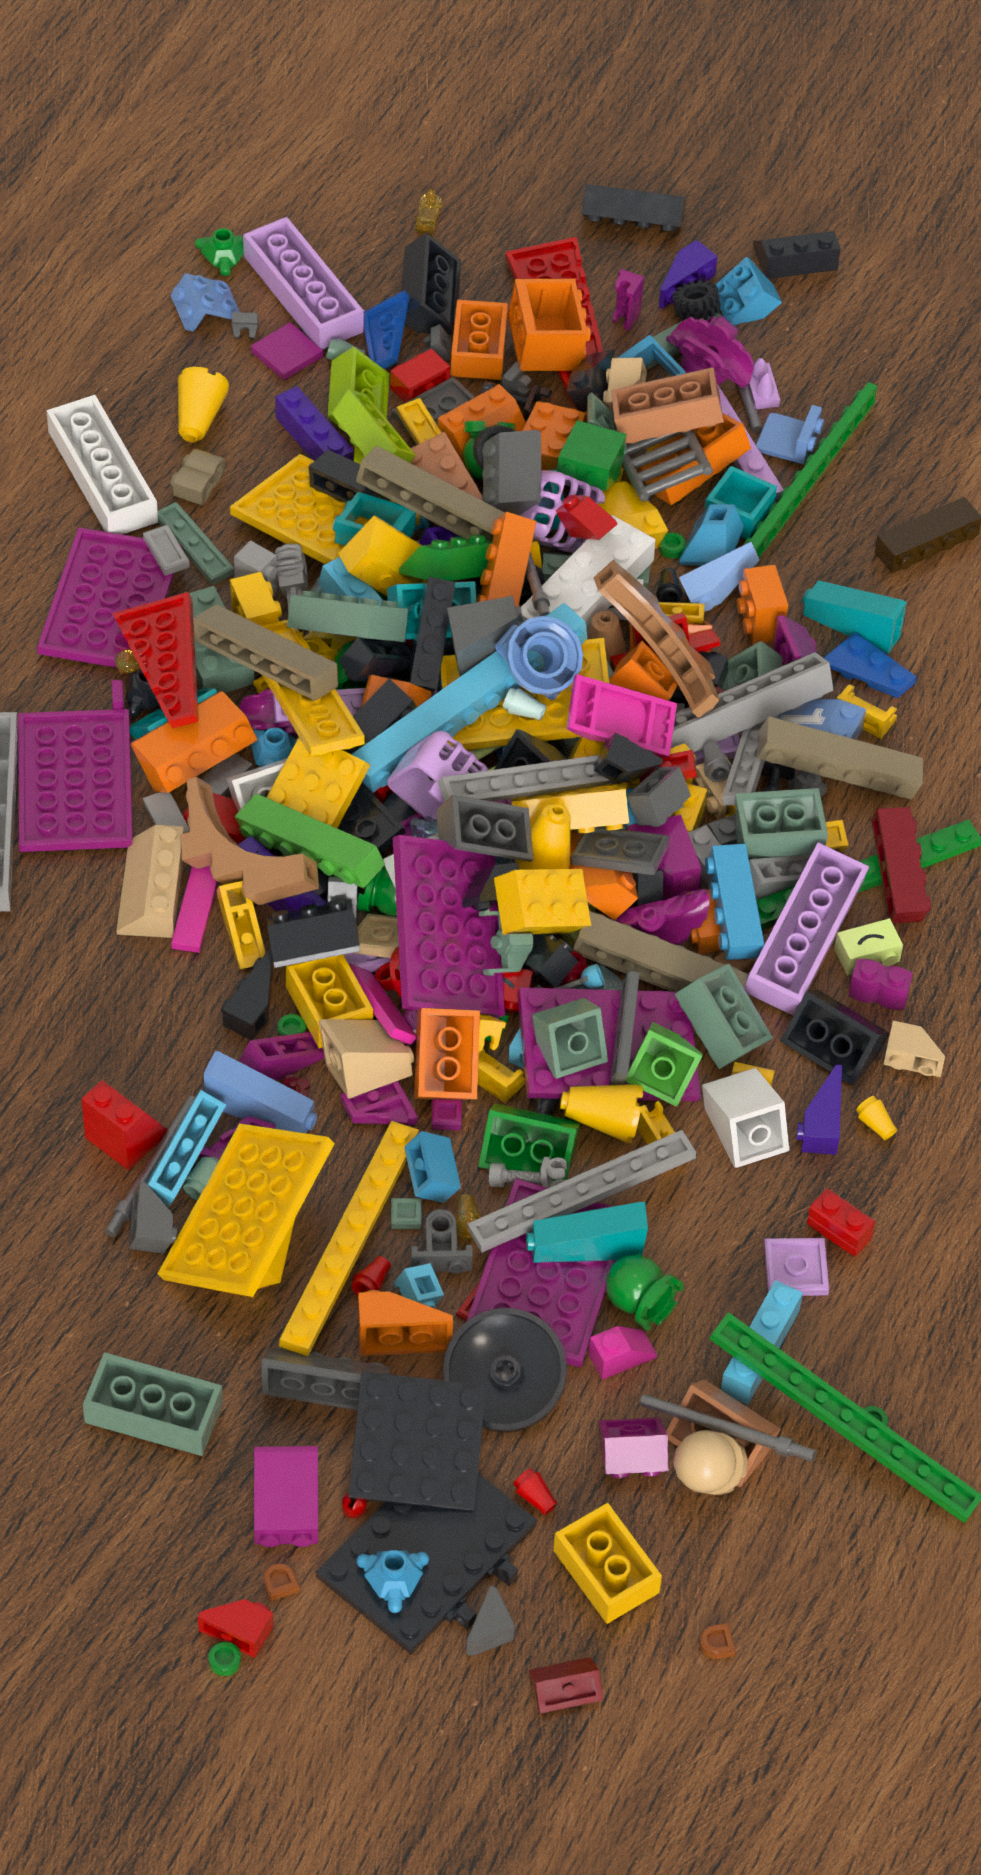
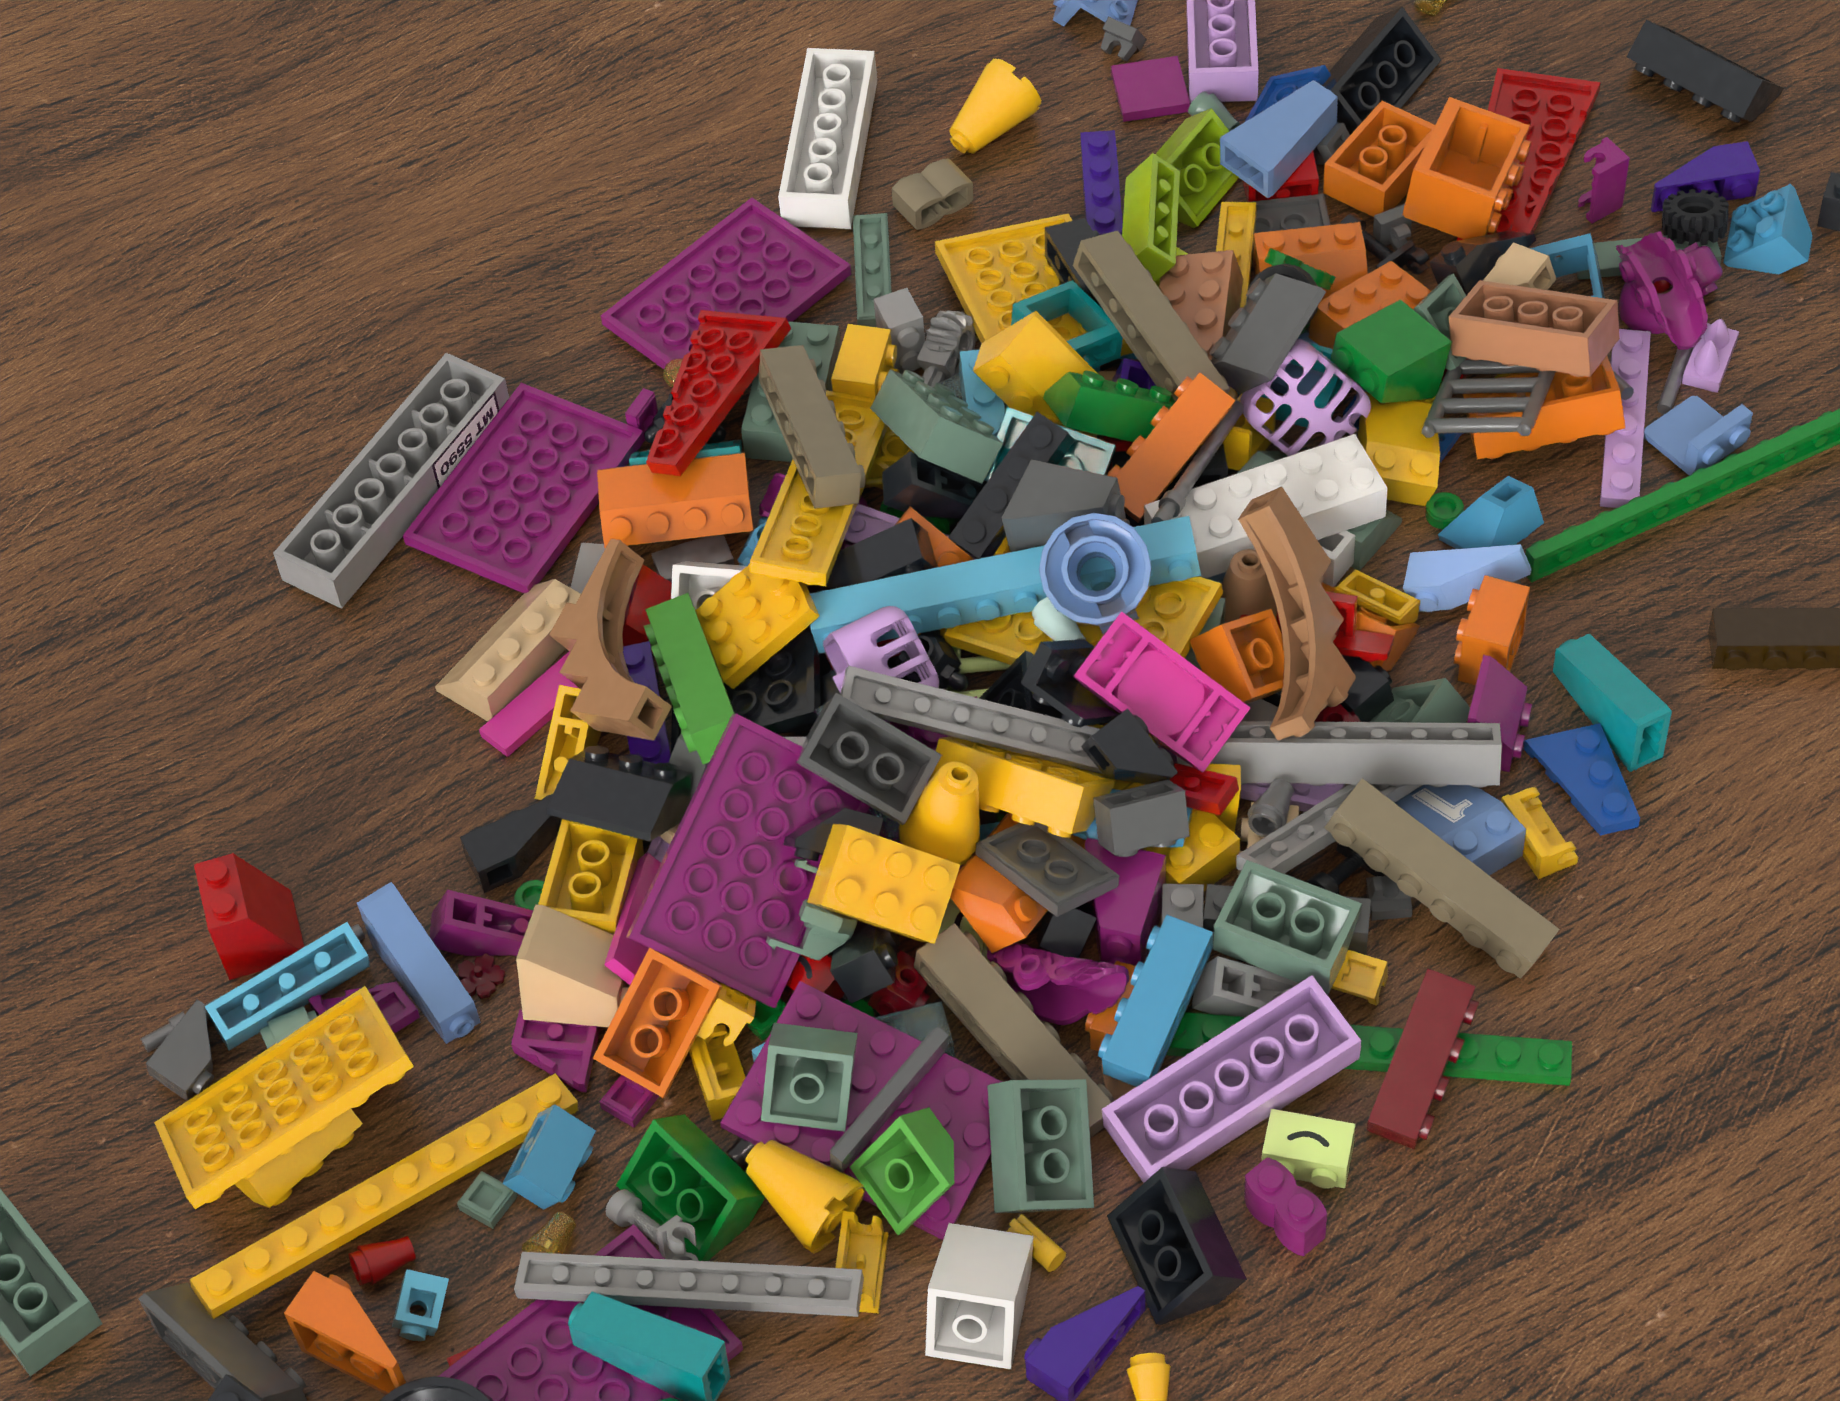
camera: 40 degrees right, 0 degrees up
(166, 550) = (824, 263): light grey tile -> none
(410, 350) = (1279, 138): none -> medium blue slope
(442, 1246) = (486, 1268): dark grey pin -> none
(550, 736) = (1053, 683): none -> black bracket
(584, 518) = (1311, 422): red slope -> none
(590, 978) = (908, 1012): medium azure hinge -> none
(669, 587) = (1392, 564): black cone -> none
(748, 494) = (1566, 486): teal piece -> none
(913, 1050) = (1260, 1314): tan slope -> none

